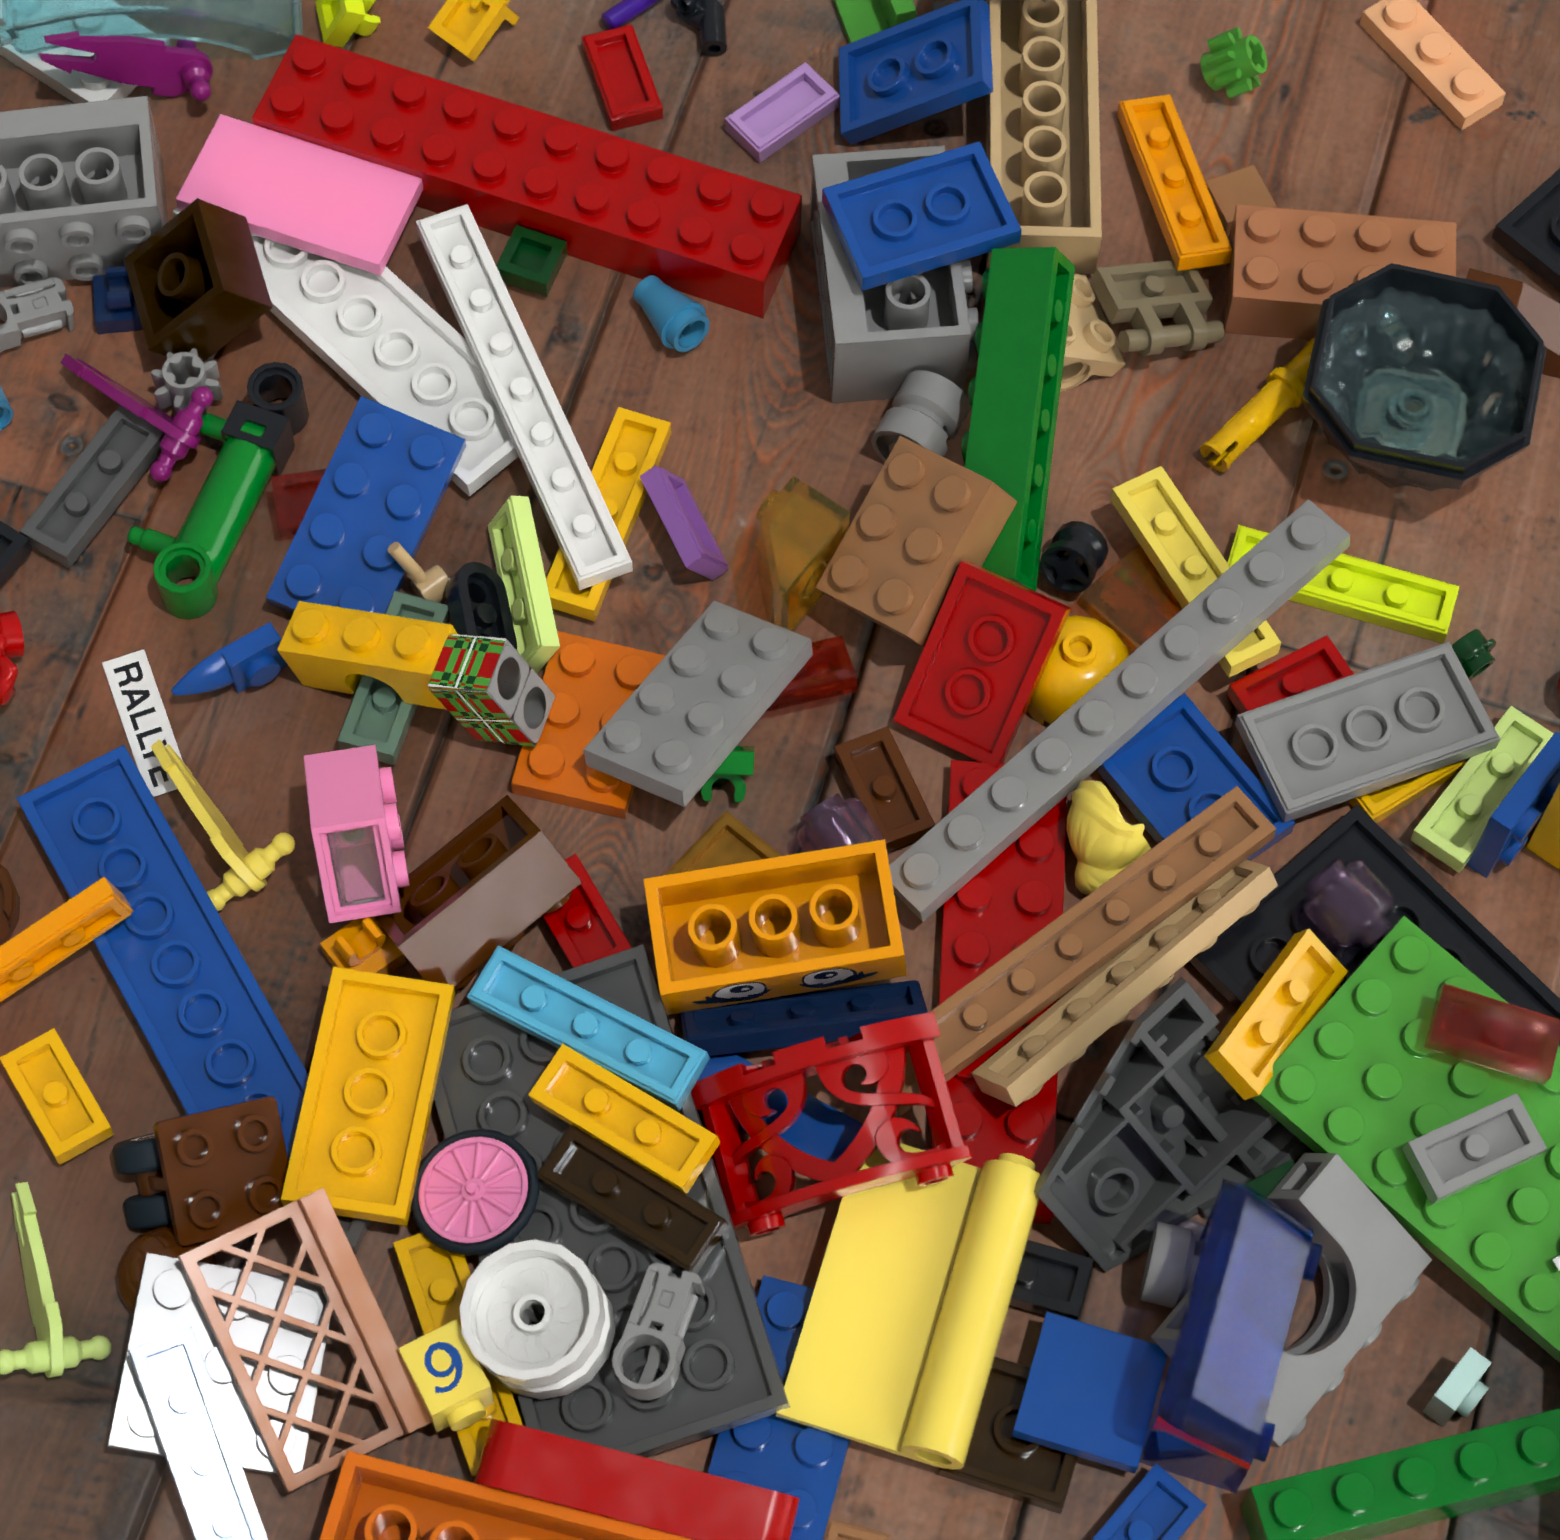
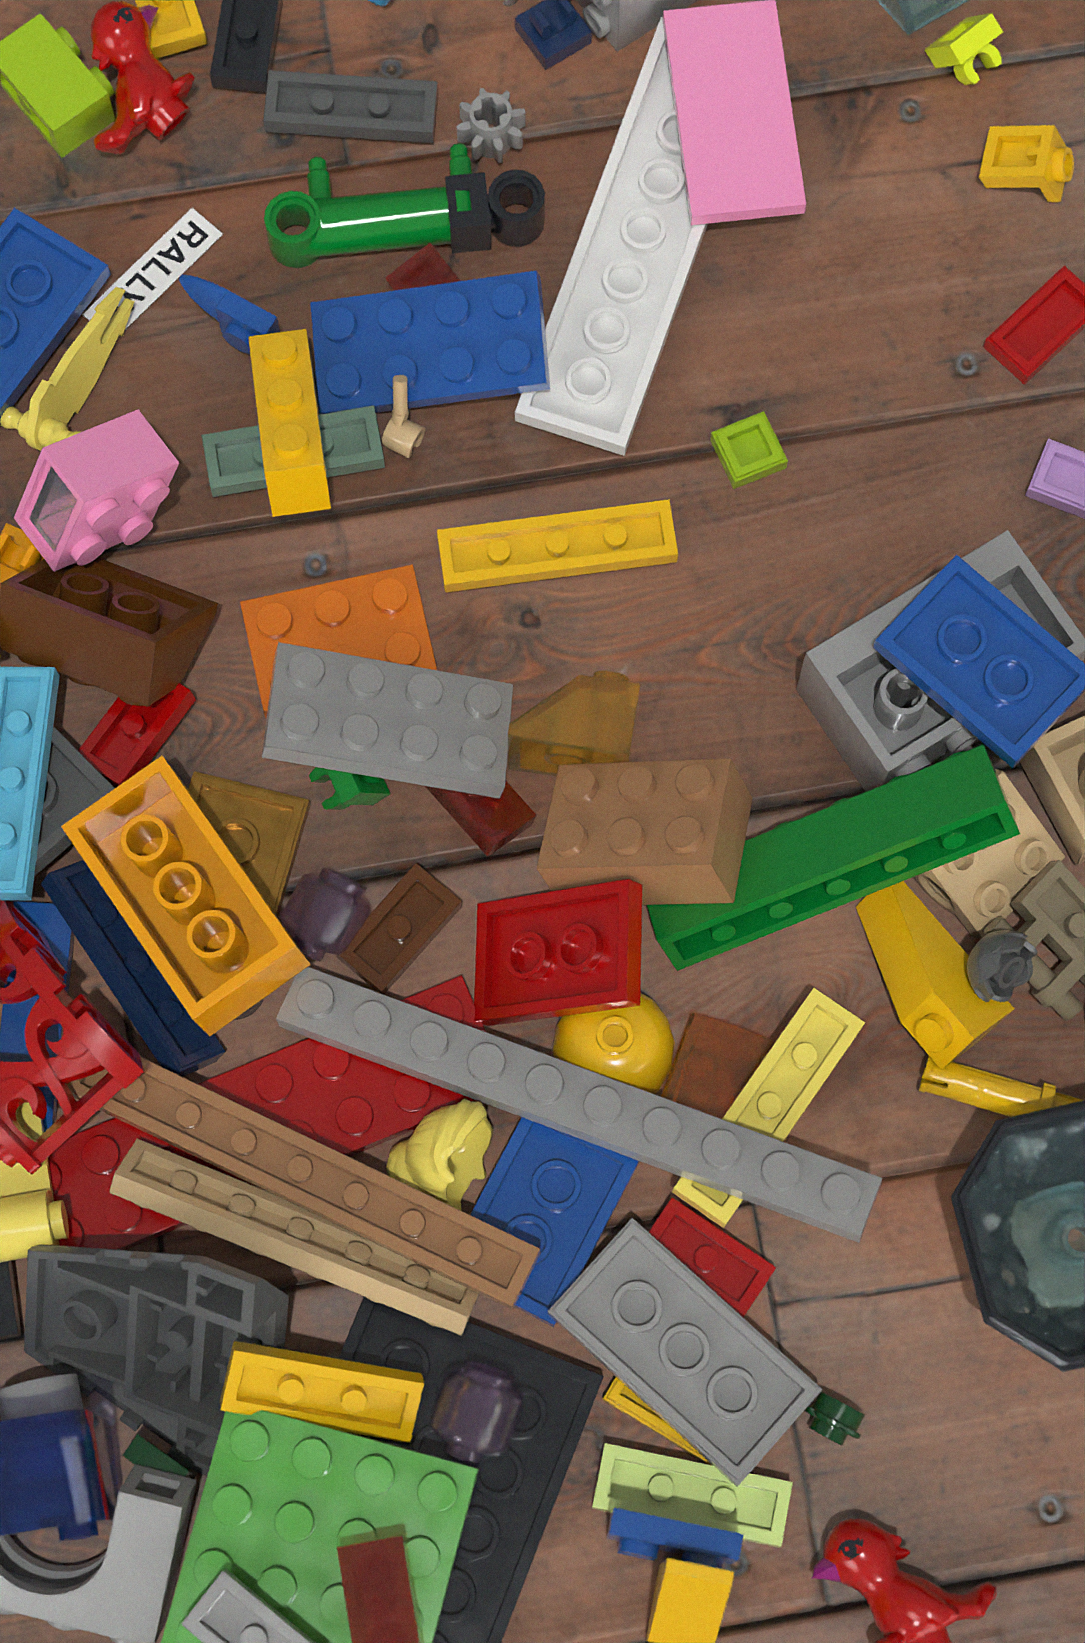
camera: 65 degrees right, 10 degrees up
(179, 431) = (445, 91): magenta piece -> none
(197, 281) = (584, 75): dark brown brick -> none
(477, 664) = (298, 499): piece -> none
(489, 609) = (387, 496): black plate -> none
(523, 574) = (440, 510): yellowish green tile -> none
(524, 398) = (629, 410): white tile -> none
(529, 169) = (877, 302): red brick -> none
(531, 260) = (788, 346): dark green plate -> none
(602, 336) = (748, 450): none -> lime tile
(674, 316) = (800, 499): dark azure cone -> none
(684, 522) = (579, 618): medium lavender tile -> none
(923, 411) = (798, 777): light grey wheel -> none
(1073, 557) = (732, 988): black wheel -> none
(1142, 410) = (926, 975): none -> yellow slope
(1164, 344) = (1000, 964): none -> dark grey plate
(1371, 592) = (859, 1283): neon yellow tile -> none

